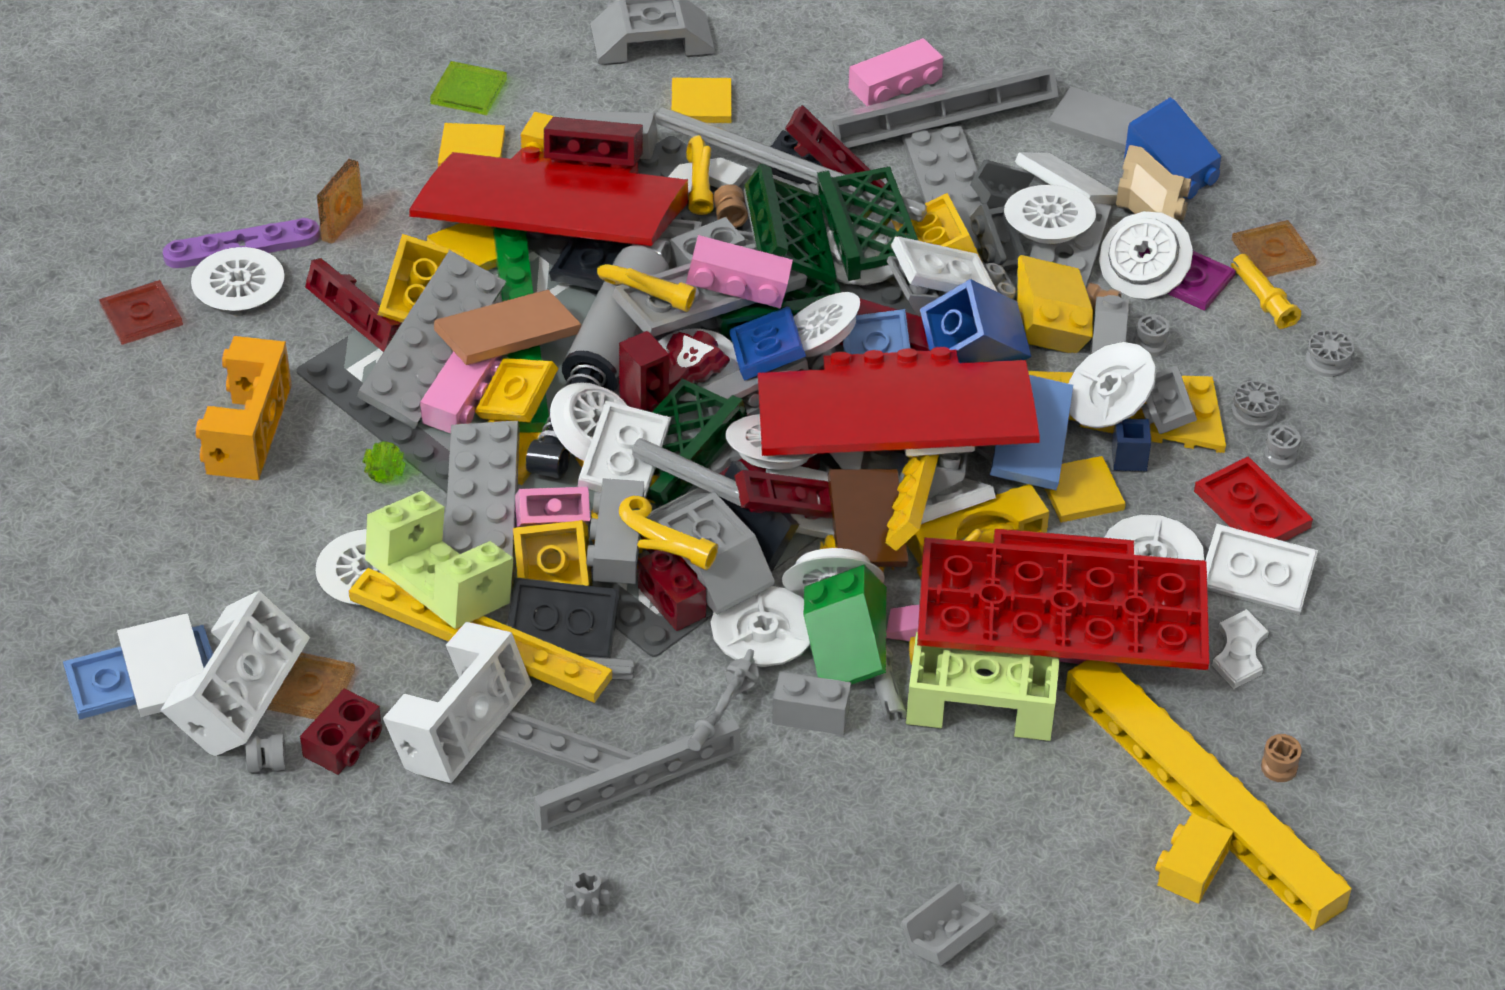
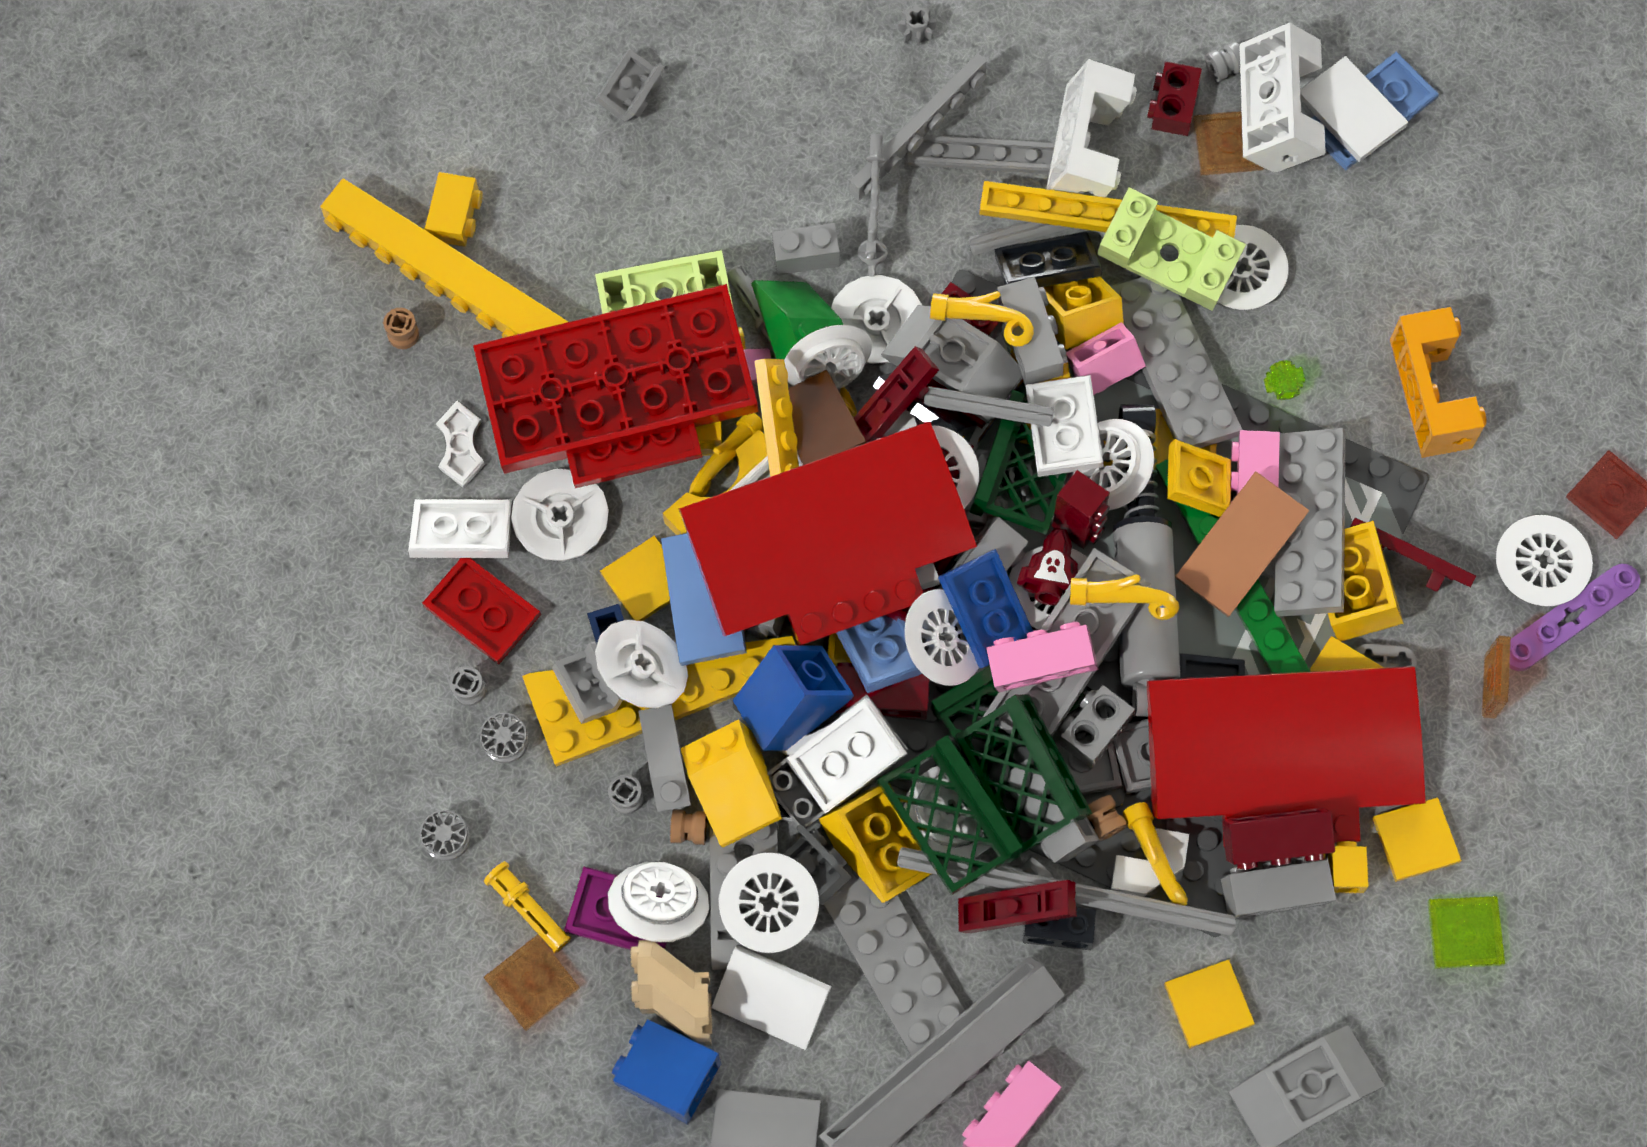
camera: 165 degrees right, 25 degrees up
(998, 182) = (829, 944): dark grey bracket -> none

